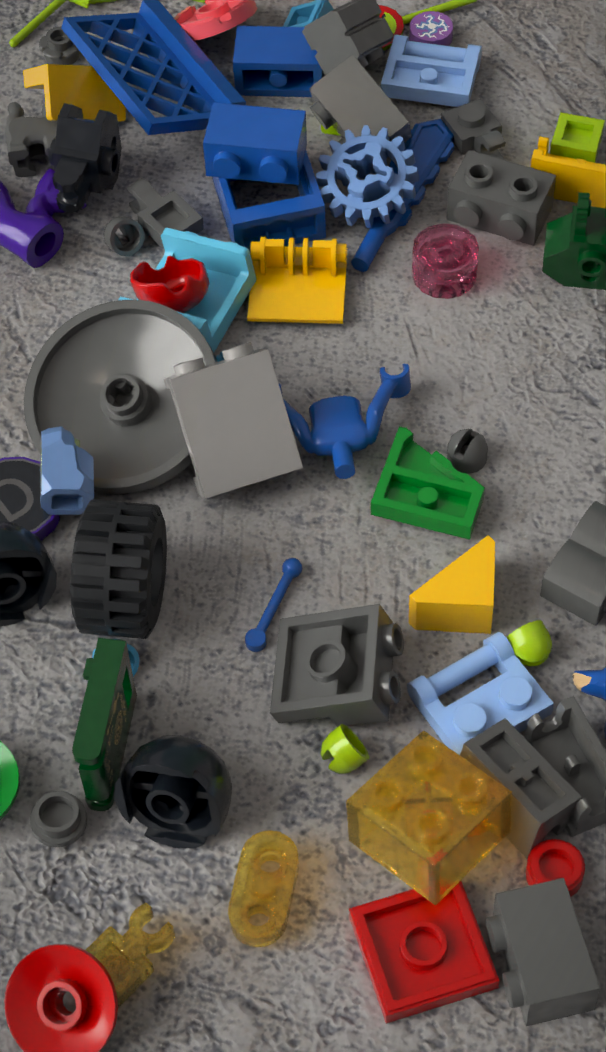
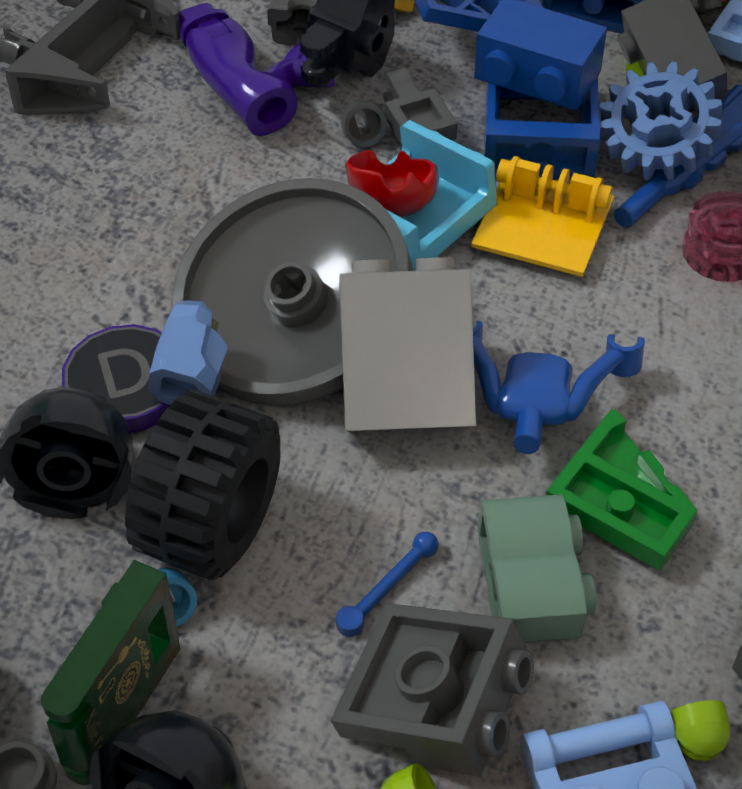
camera: 15 degrees right, 5 degrees down
(376, 558) = (533, 566): none -> sand green brick
(459, 595) = (624, 636): yellow slope -> none
(475, 455) = (699, 466): dark grey hinge -> none

